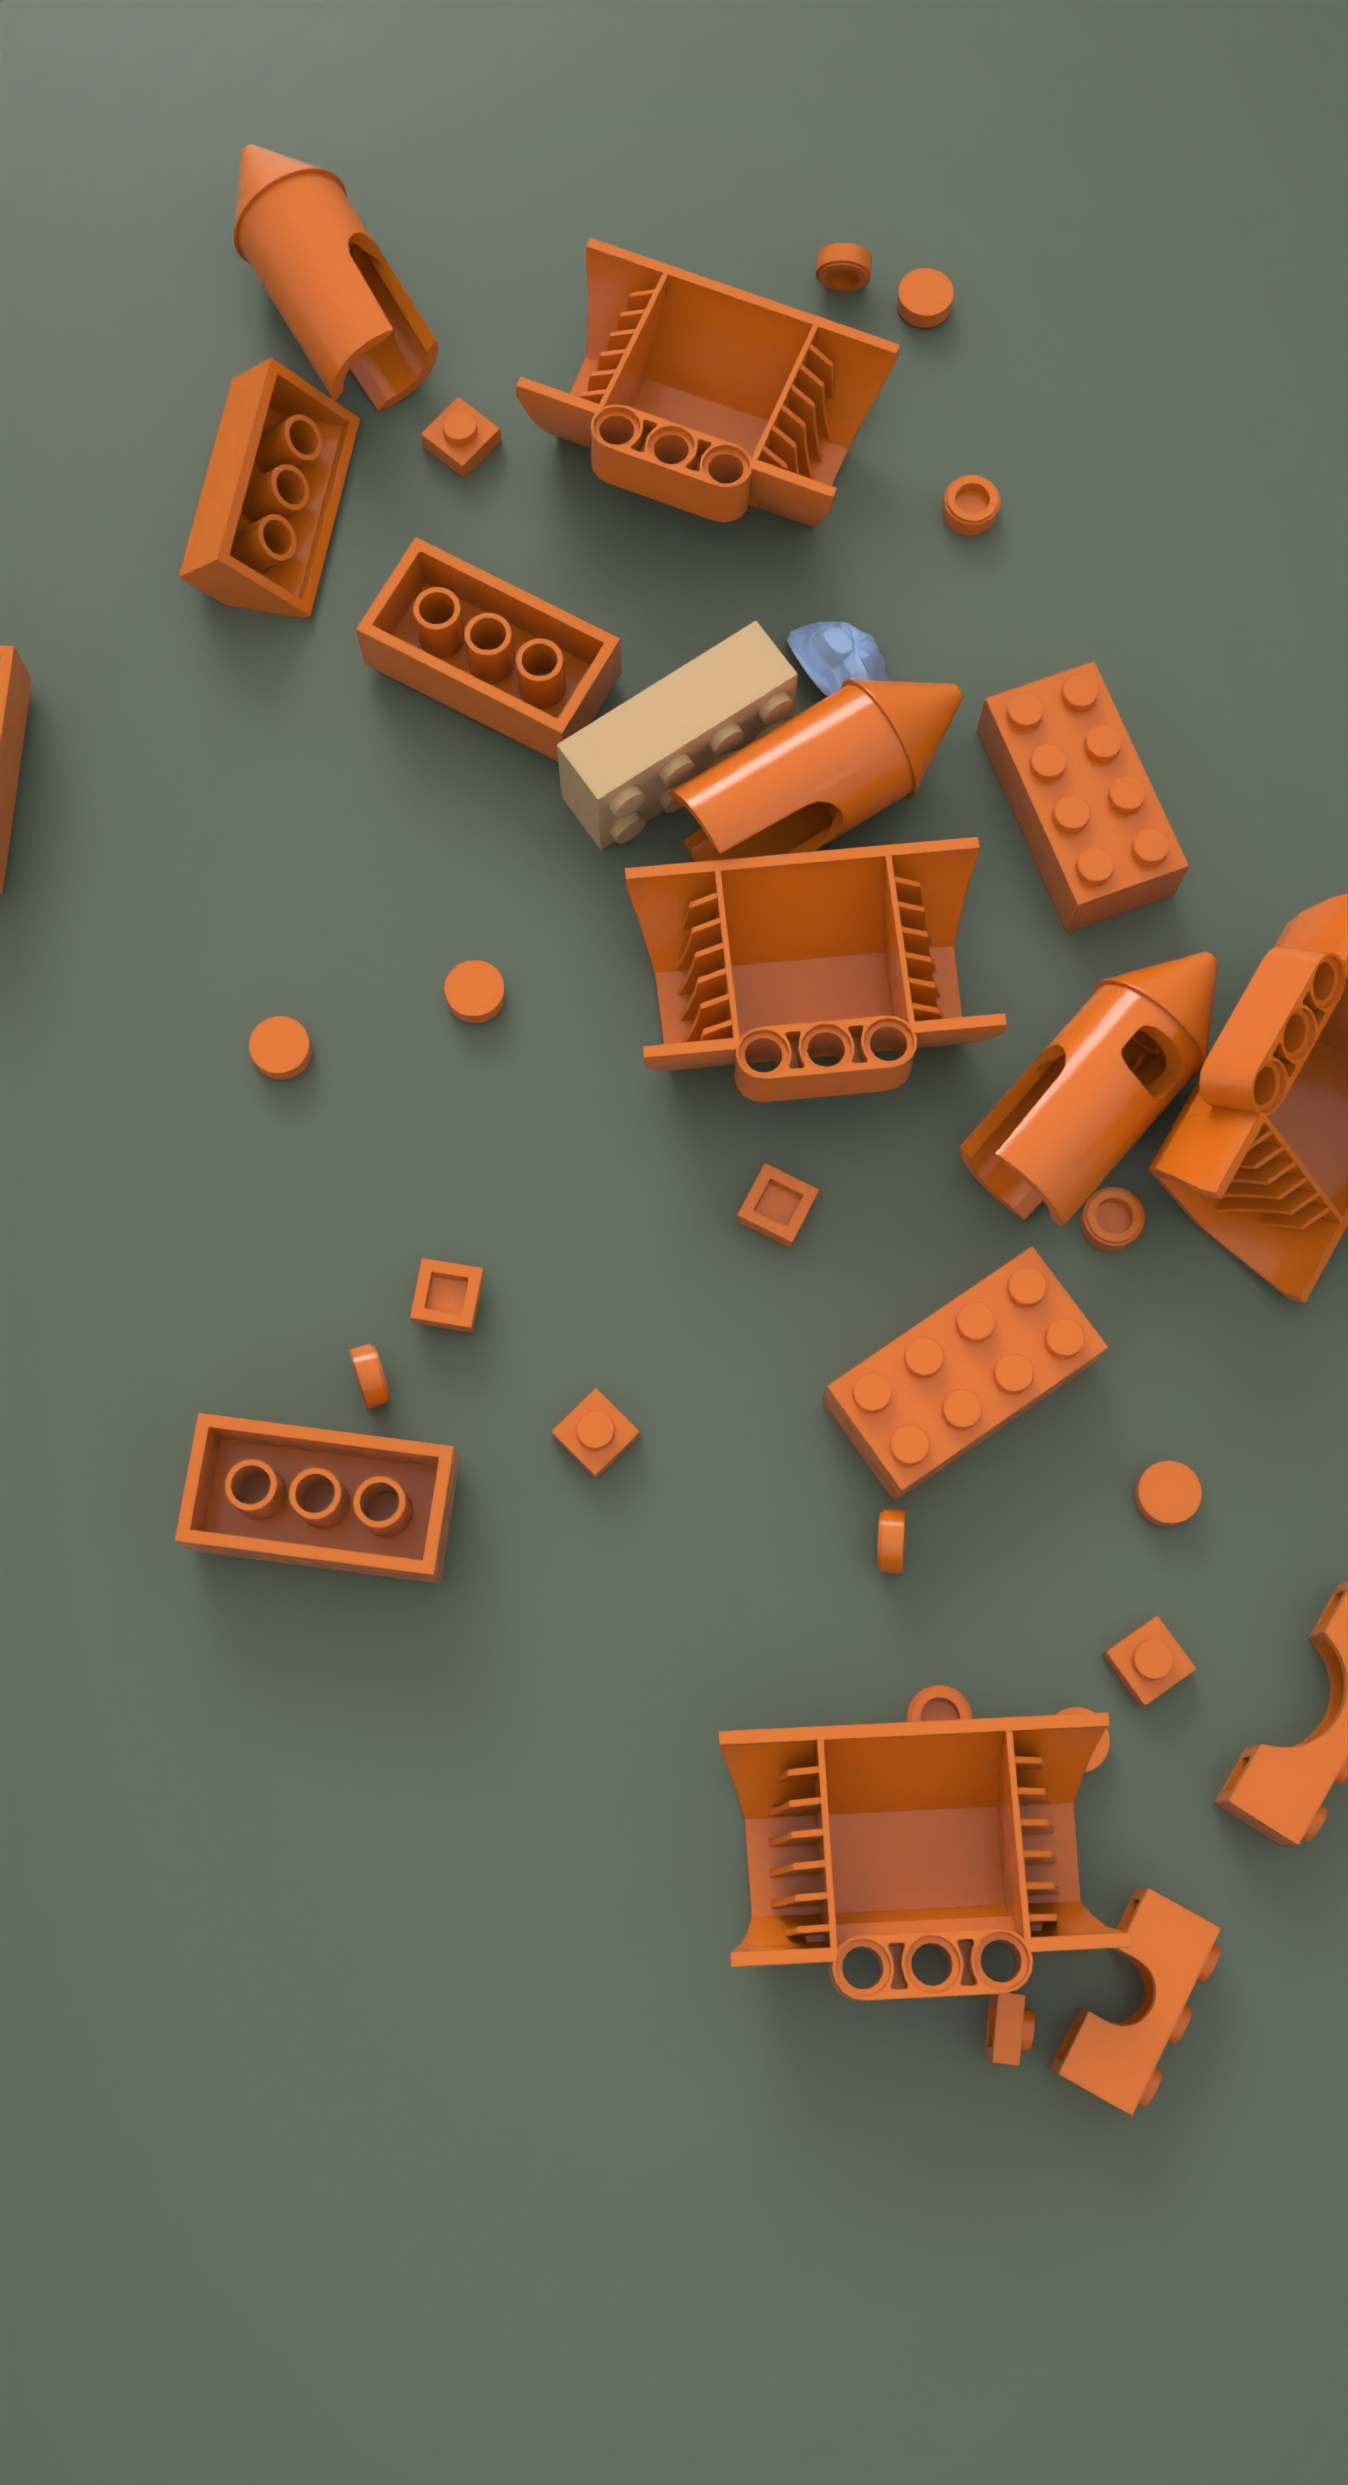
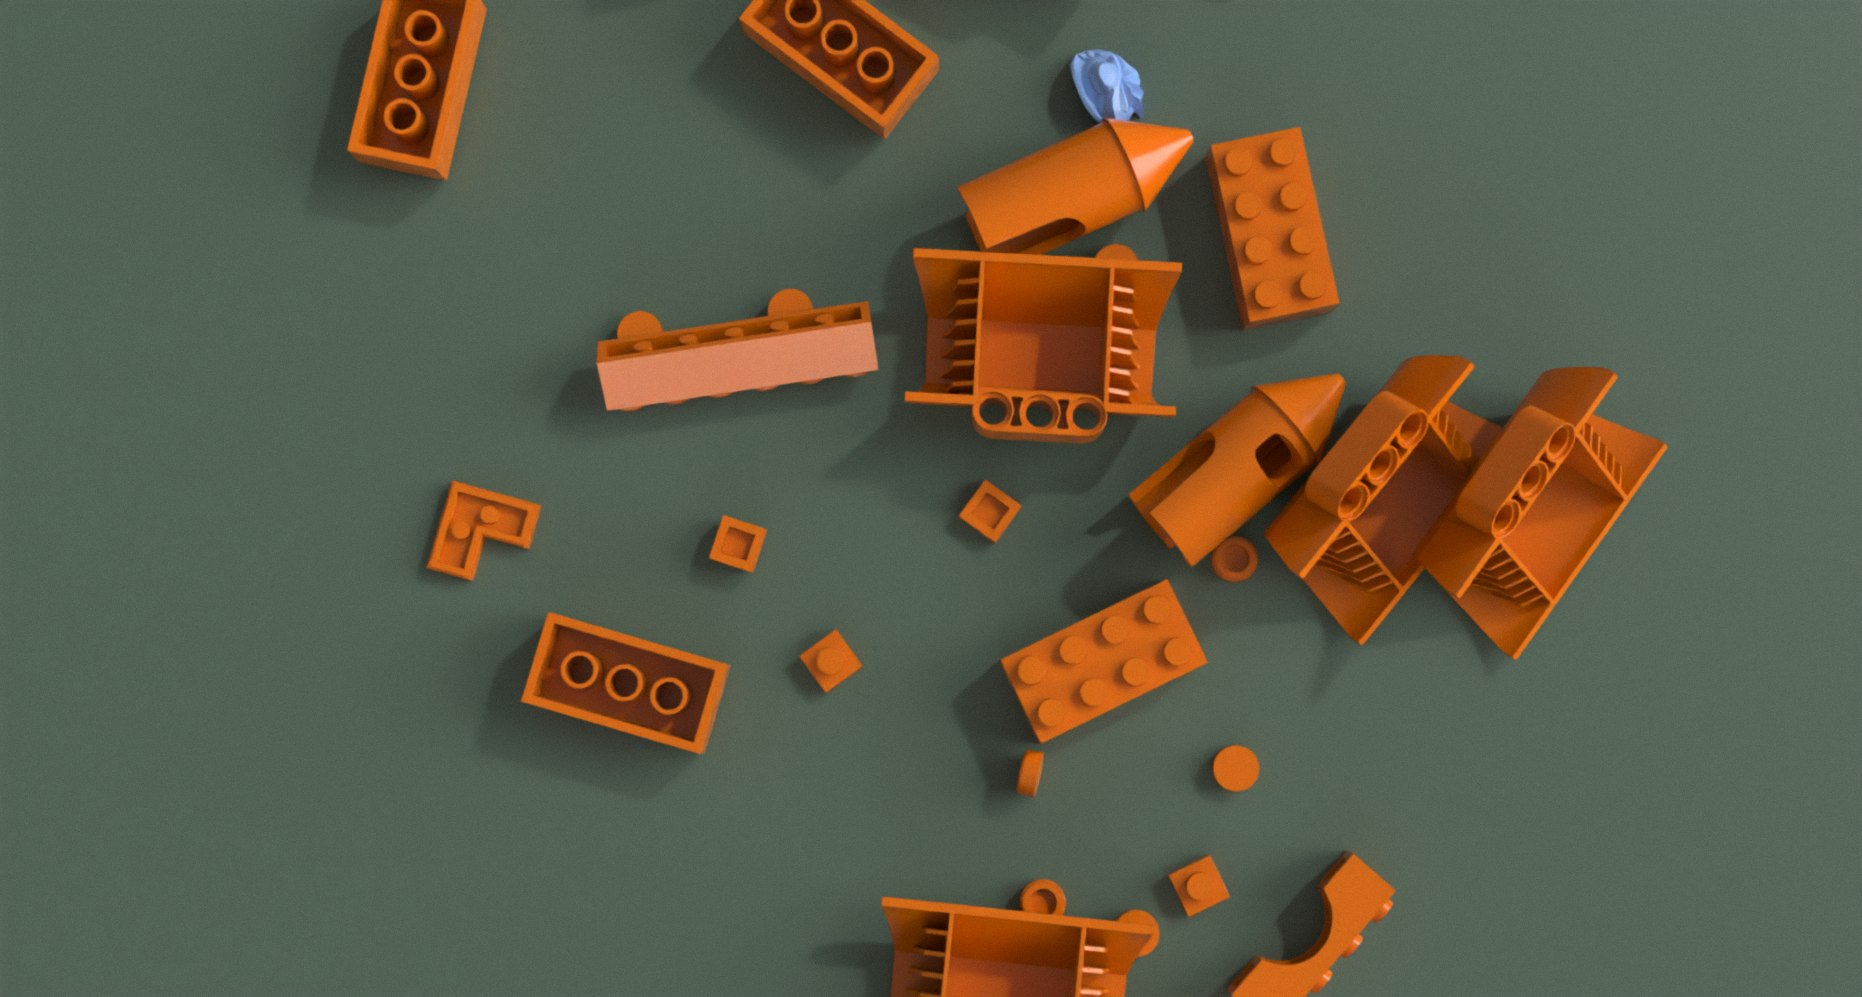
camera: 10 degrees right, 10 degrees up
(81, 1316) = (470, 518): none -> orange tile
(370, 1375) = (674, 596): orange tile -> none
(412, 1051) = (736, 356): none -> orange brick
(631, 757) = (972, 139): tan brick -> none

